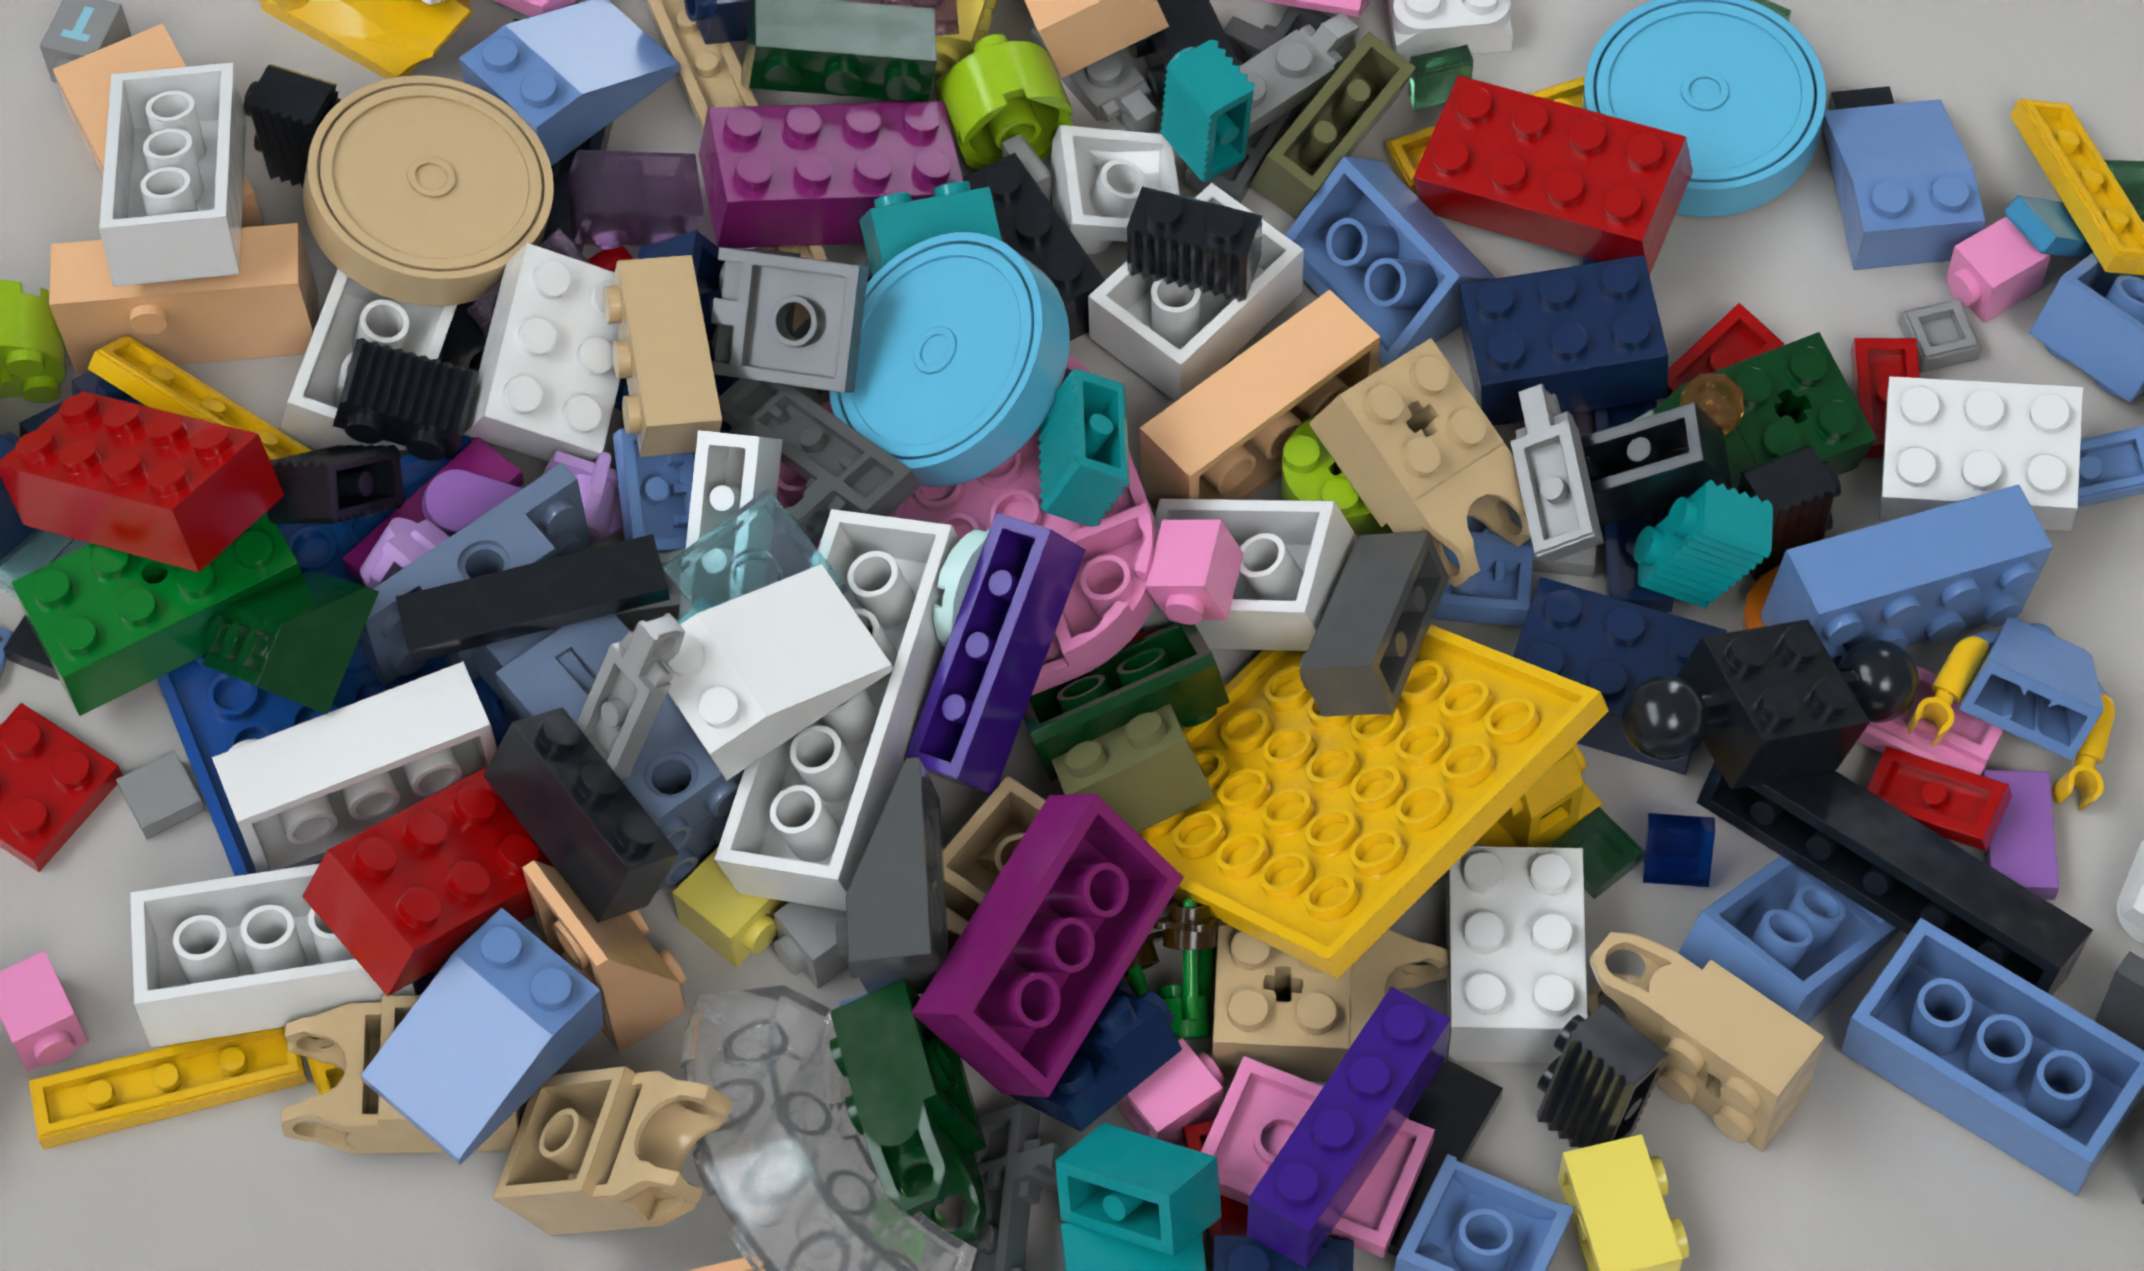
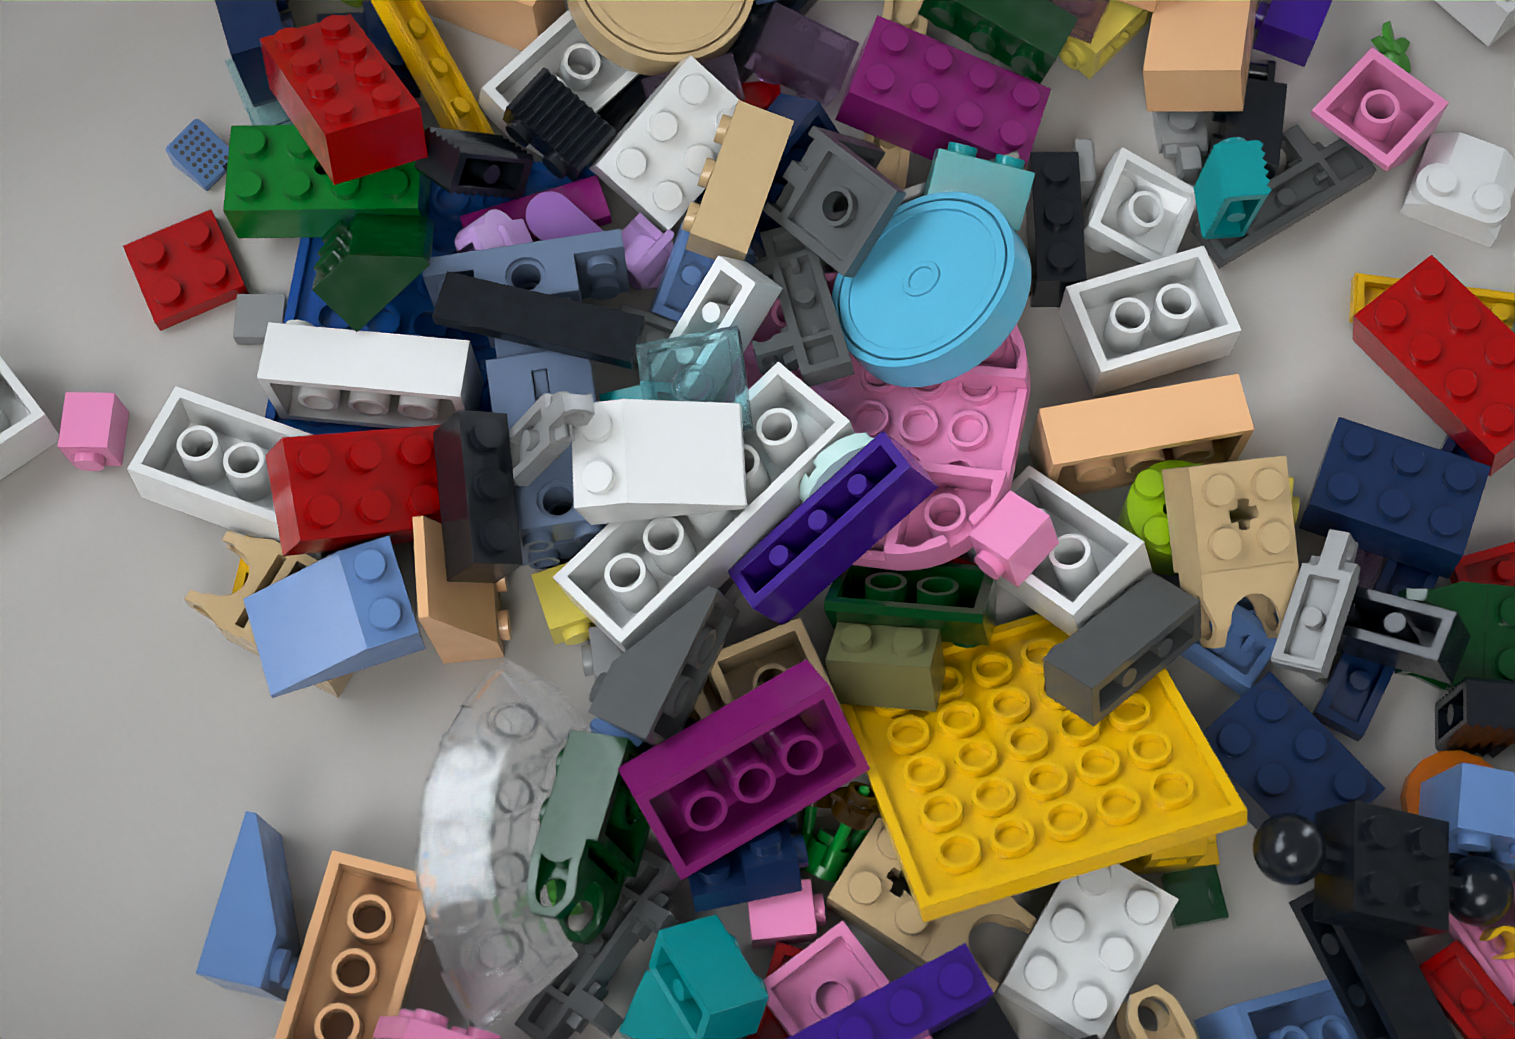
camera: 30 degrees right, 10 degrees up
(161, 1084) = (138, 522): yellow tile -> none
(608, 1150) = (373, 742): tan brick -> none
(1000, 94) = (1094, 104): lime brick -> none
(1084, 449) = (982, 409): teal brick -> none
(1193, 243) = (1160, 287): black brick -> none
(1296, 68) = (1316, 186): light grey hinge -> none
(1332, 124) = (1321, 243): olive brick -> none
(1384, 256) = (1300, 363): medium blue slope -> none
(1437, 74) = (1421, 240): clear green tile -> none
(1678, 850) = (1254, 931): clear blue tile -> none
(1704, 544) = (1407, 716): teal brick -> none
(1717, 398) = (1477, 608): clear orange tile -> none

